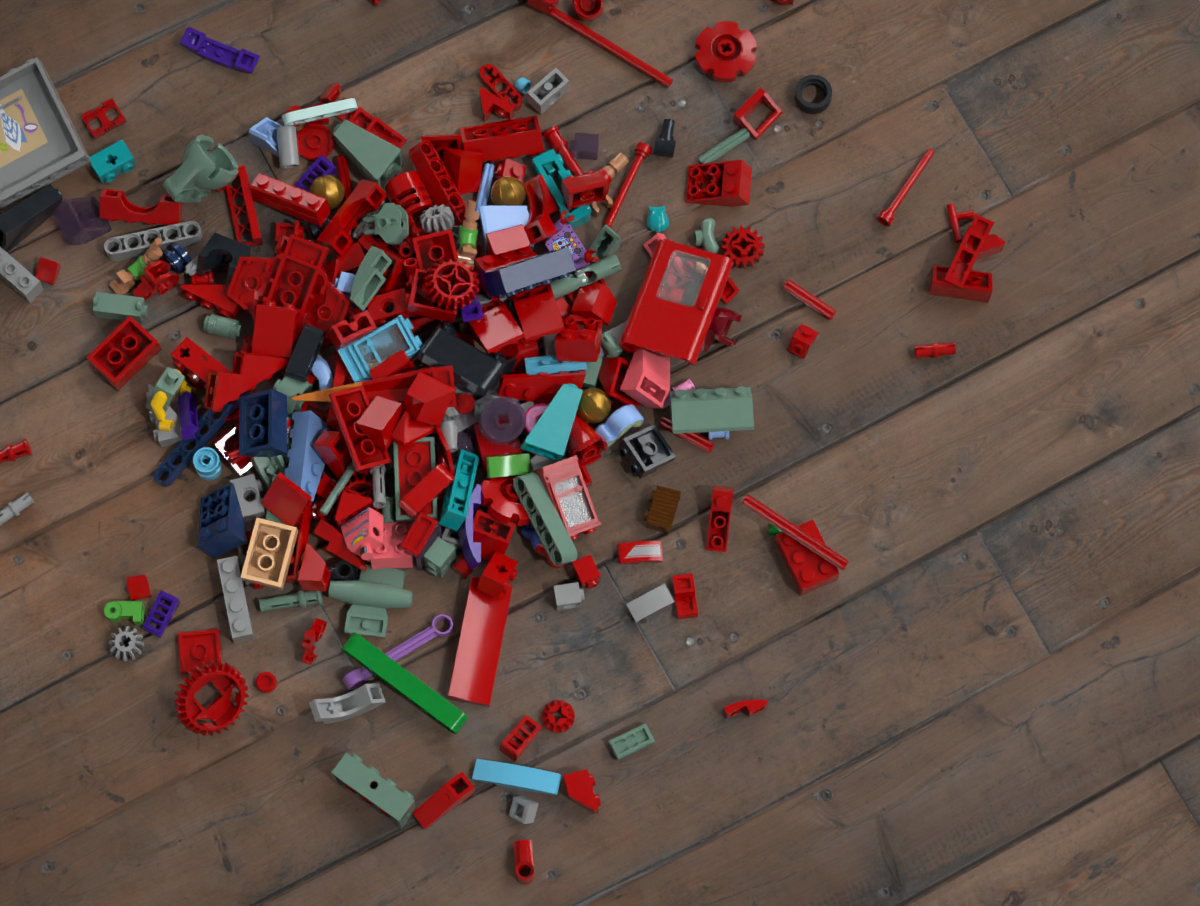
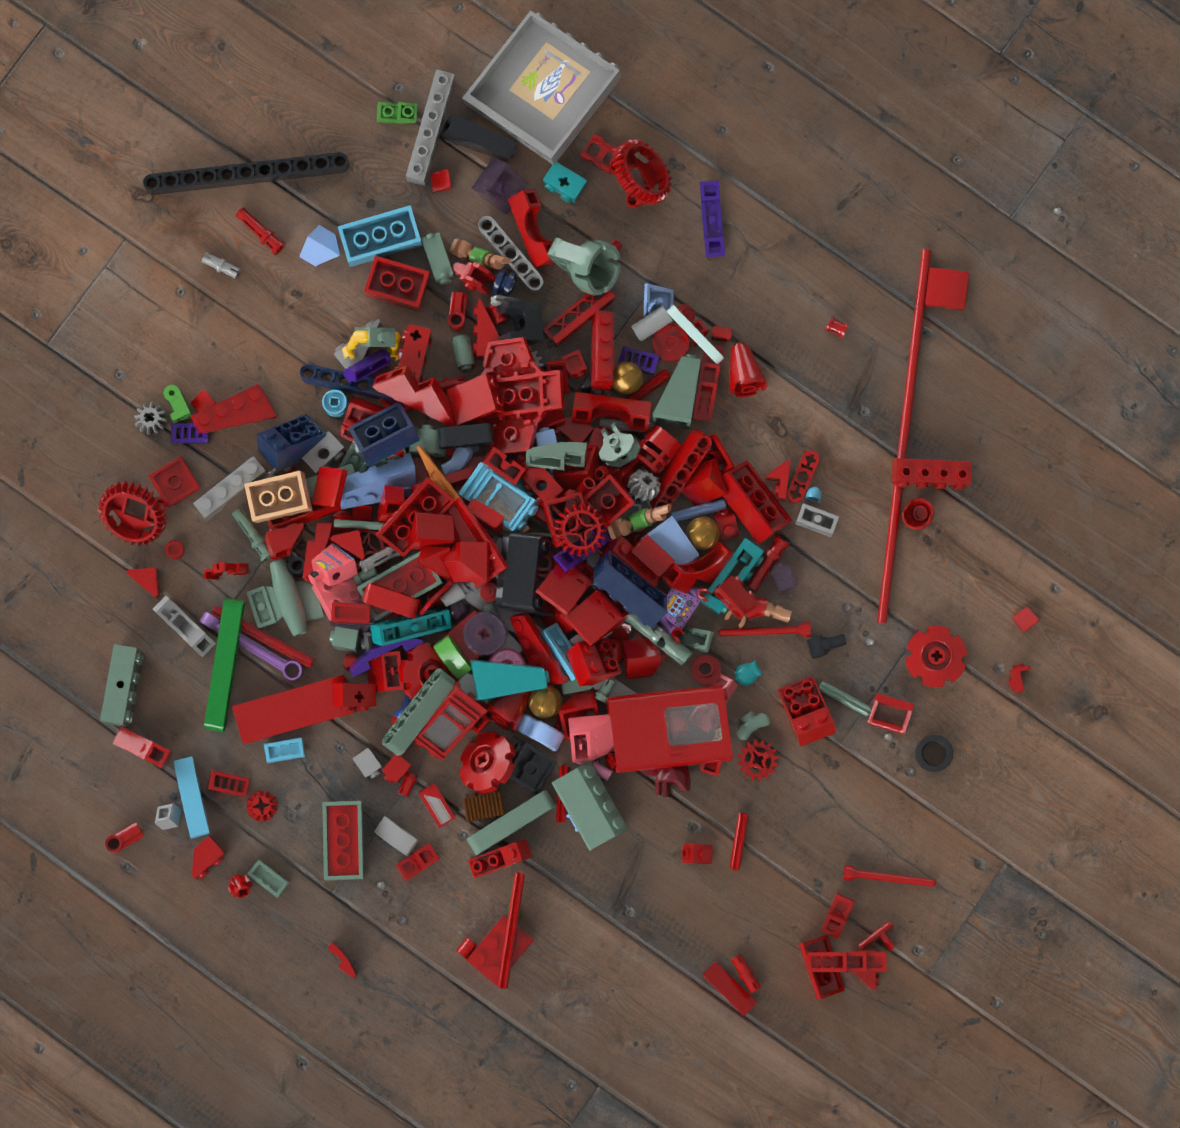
camera: 65 degrees right, 10 degrees up
(49, 408) = (320, 246): none -> light blue slope
(68, 347) = (380, 236): none -> medium azure brick
(145, 90) = (651, 172): none -> red piece
(163, 560) = (240, 409): none -> red wing
(179, 313) = (457, 310): none -> red piece
(282, 720) = (147, 578): none -> red slope
(377, 88) = (745, 372): none -> red cone
(403, 633) = (270, 641): none -> red axle
(515, 668) = (284, 750): none -> medium azure plate
(606, 569) = (407, 784): none -> red pin
(623, 484) = (487, 762): none -> red piece
(626, 770) = (239, 886): none -> red gear
(631, 651) = (343, 840): none -> red brick
(635, 263) = (712, 676): none -> red piece
(679, 373) = (611, 761): none -> red plate
(690, 492) = (511, 822): none -> sand green beam
(789, 588) = (466, 947): none -> red hinge
(920, 247) = (837, 915): none -> red slope
(942, 372) = (729, 988): none -> red slope

